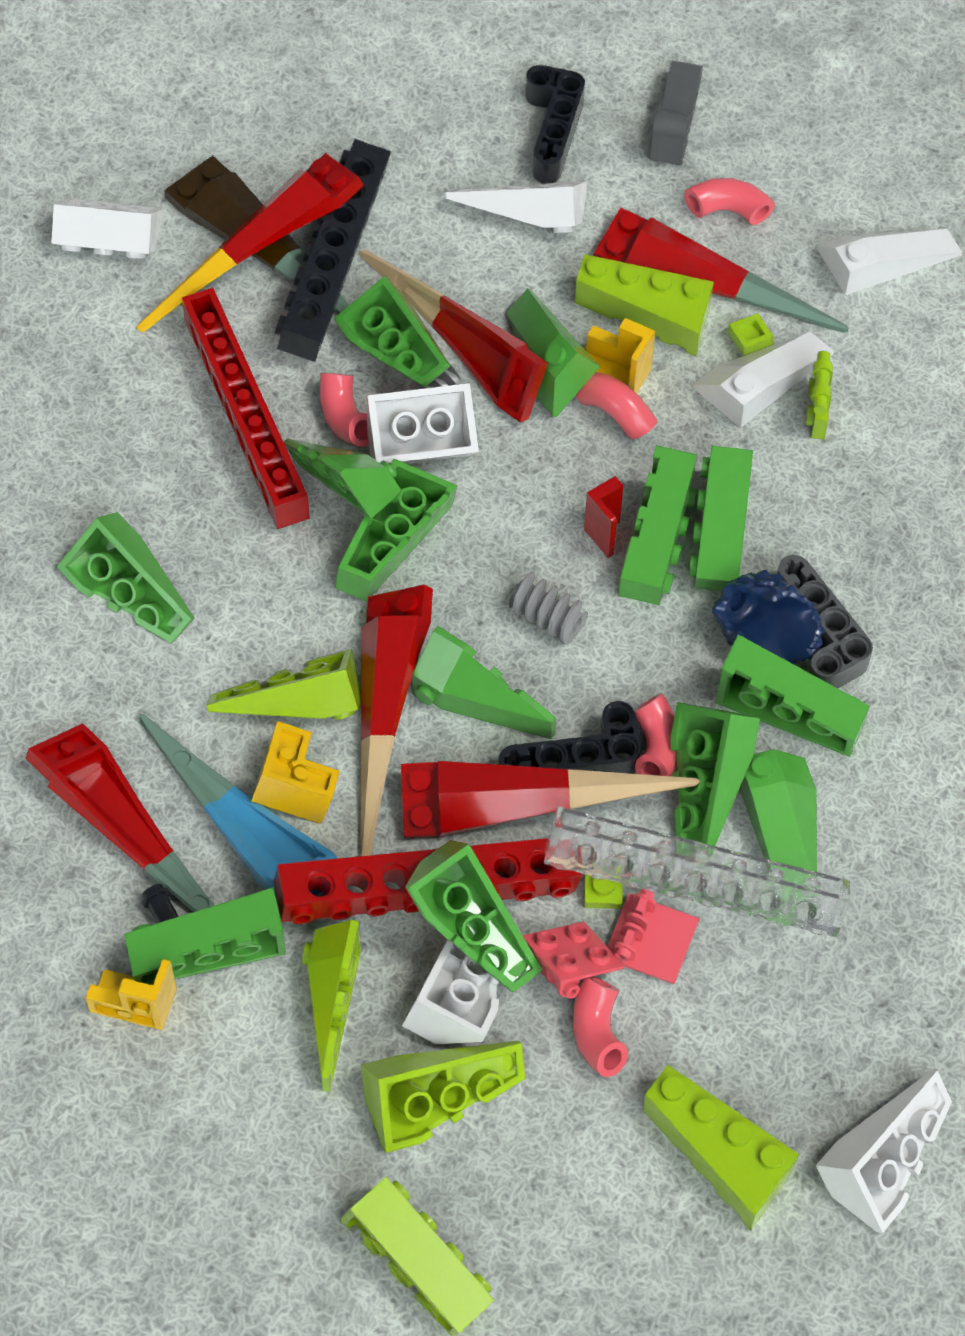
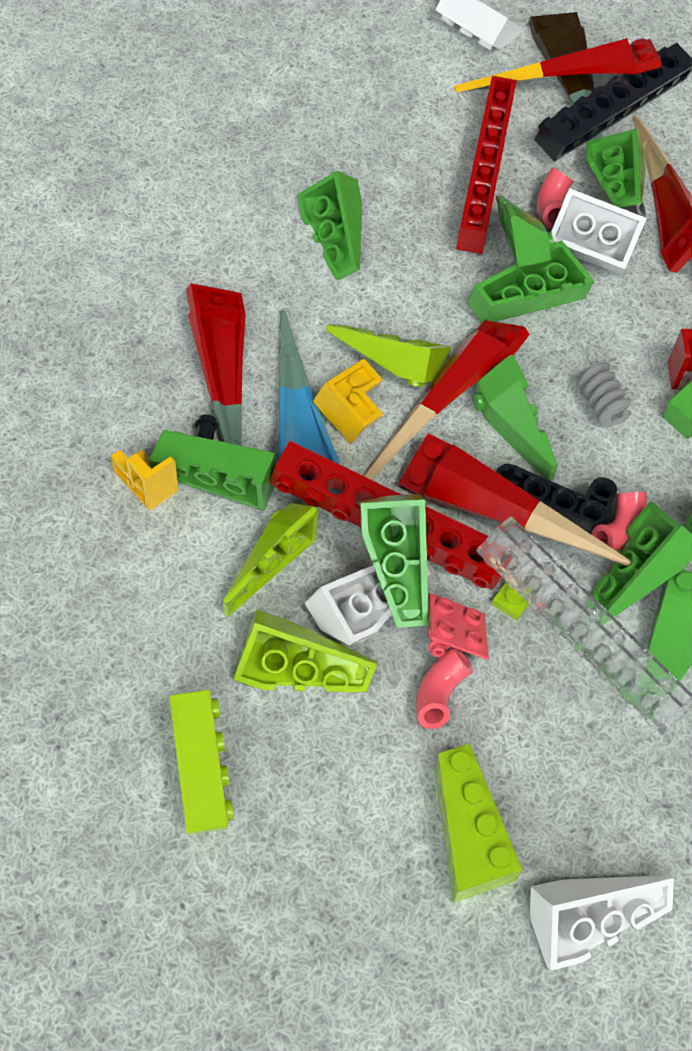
camera: 30 degrees right, 0 degrees up
(652, 936) = (525, 652): coral hinge -> none

